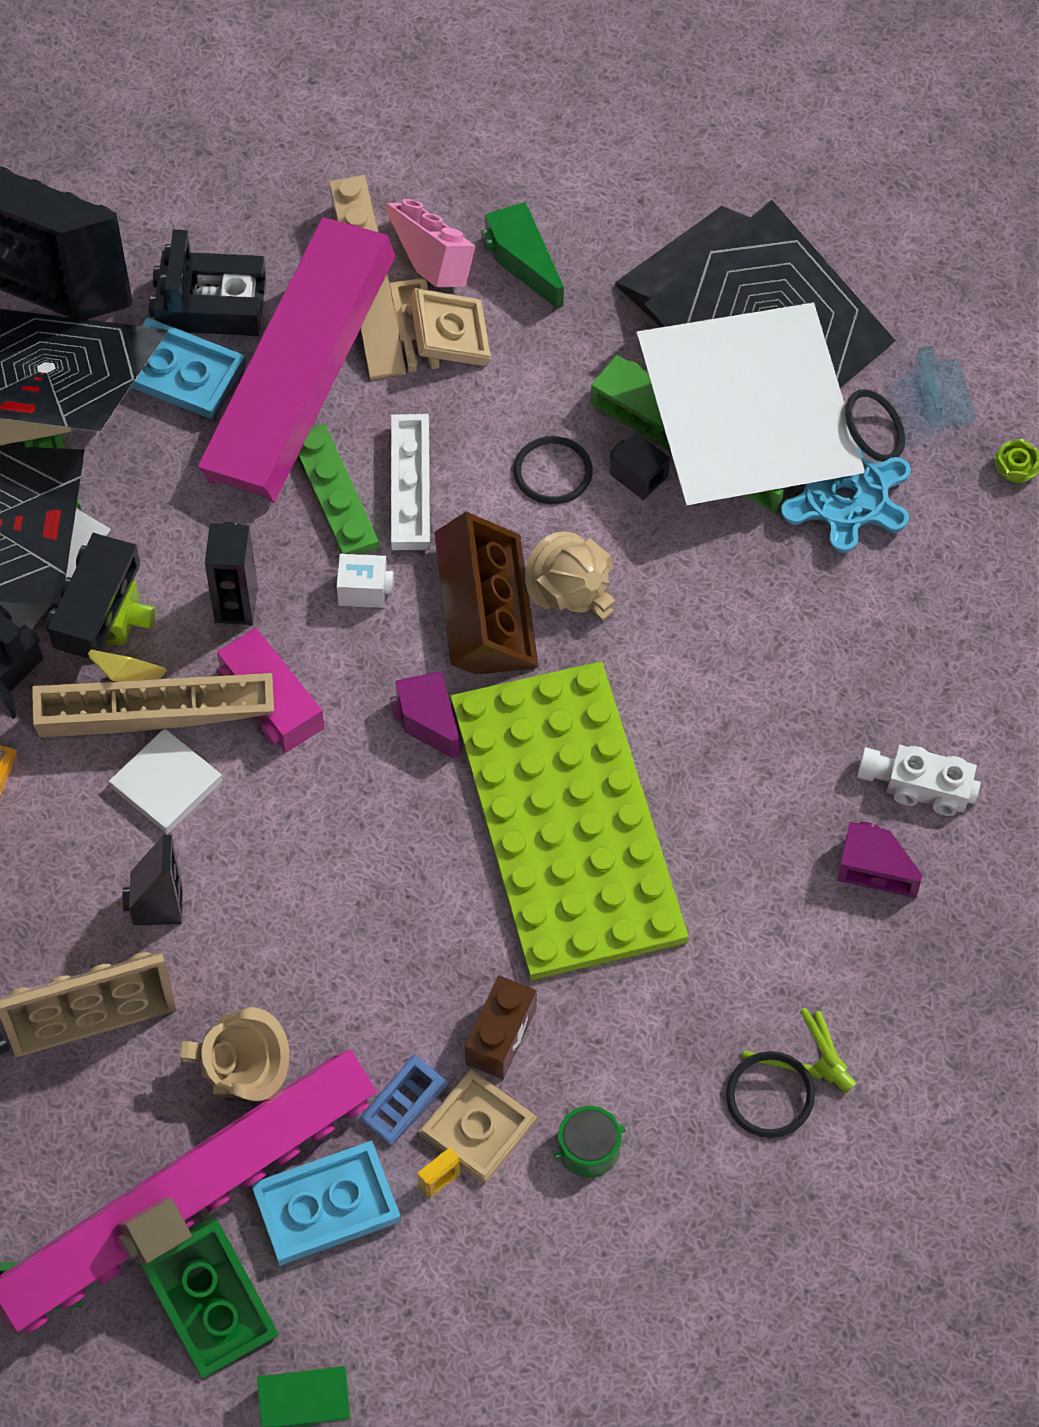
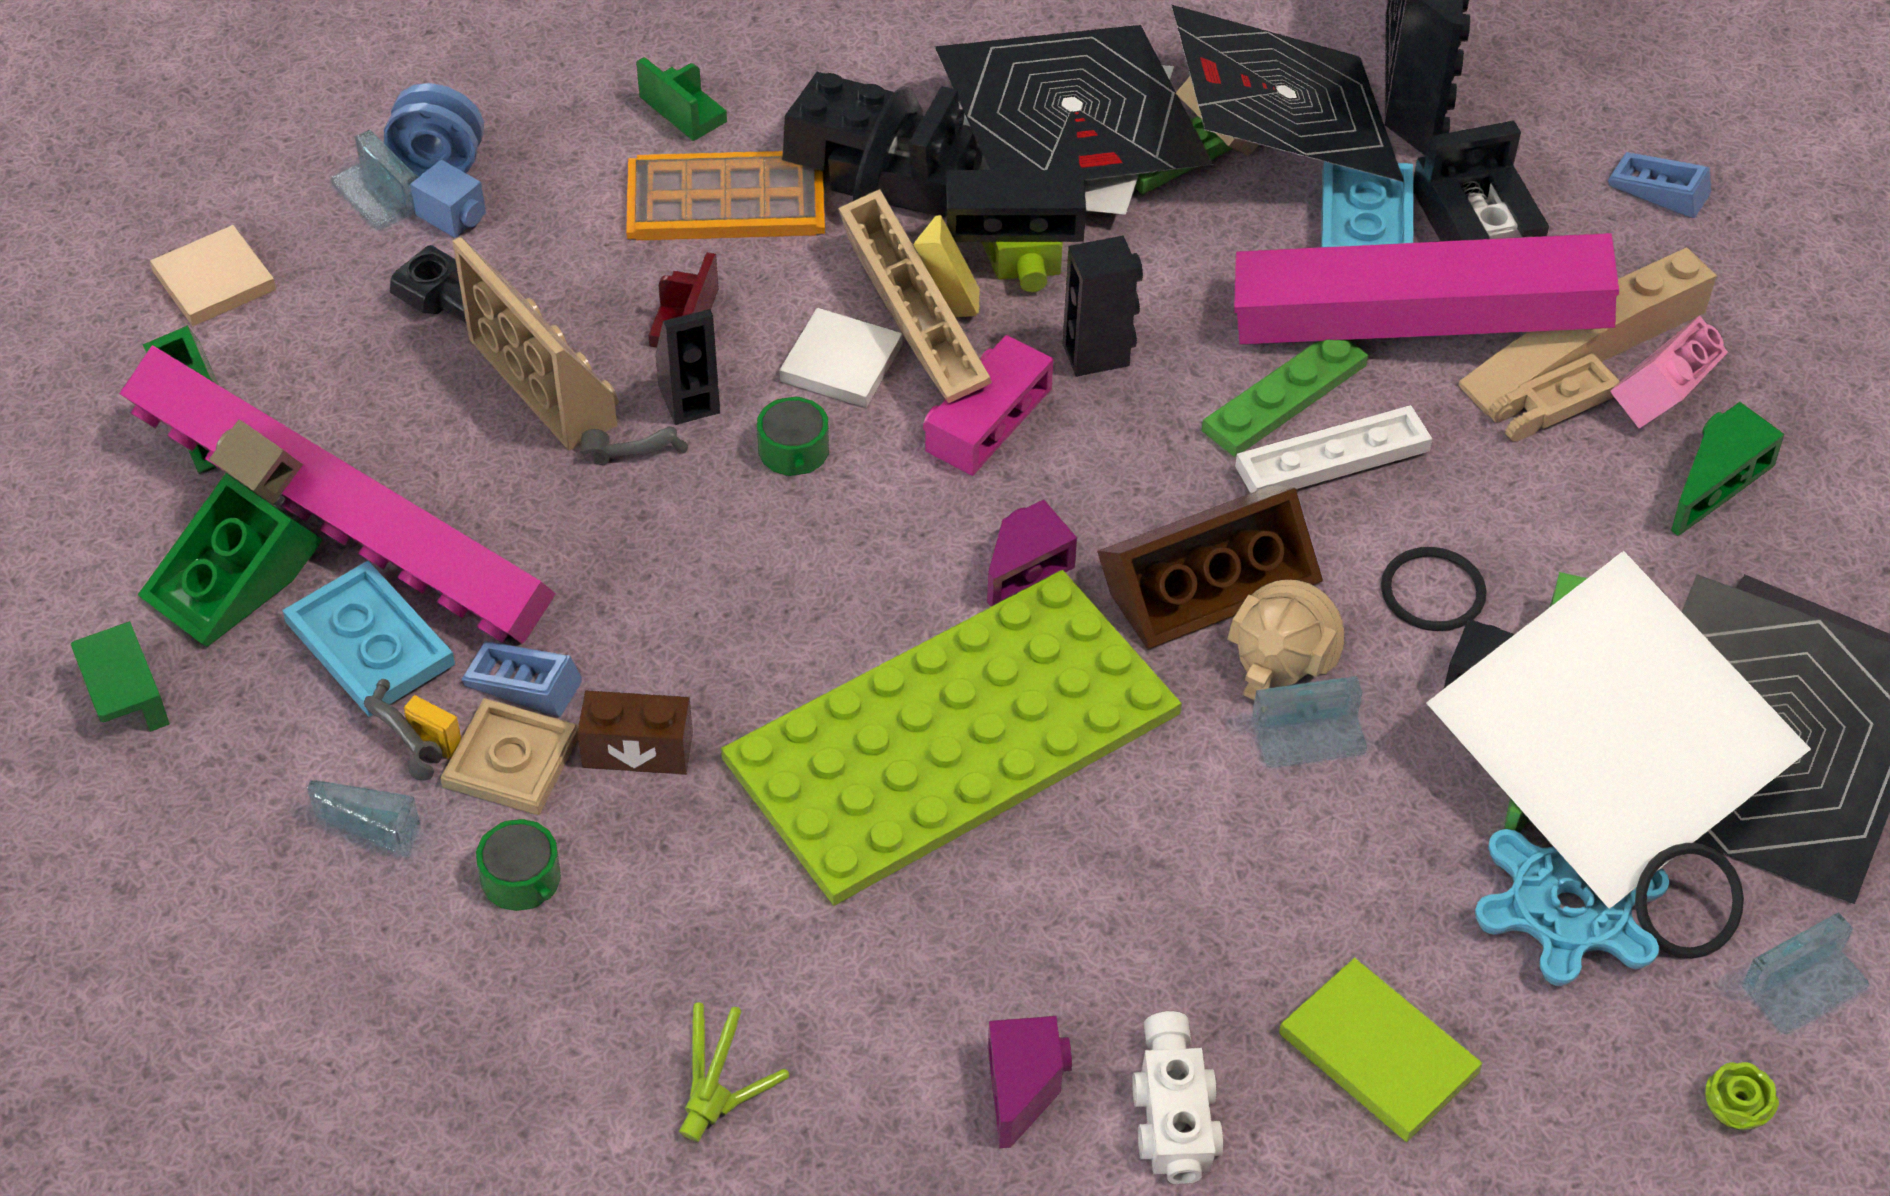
camera: 70 degrees right, 10 degrees down
(64, 877) = (685, 294): none -> dark red panel
(192, 985) = (598, 442): none -> dark grey piece
(232, 154) = (1678, 184): none -> medium blue slope
(242, 837) = (793, 436): none -> piece
(242, 1055) = (510, 501): tan helmet -> none
(363, 580) = (1172, 444): white brick -> none
(450, 327) = (1566, 425): tan tile -> none
(456, 1192) = (391, 716): none -> dark grey piece
(512, 1231) = (371, 814): none -> clear light blue slope
(649, 590) = (1309, 722): none -> clear light blue panel
(778, 1132) = (668, 1084): black tyre -> none
(916, 646) = (1380, 1049): none -> lime tile

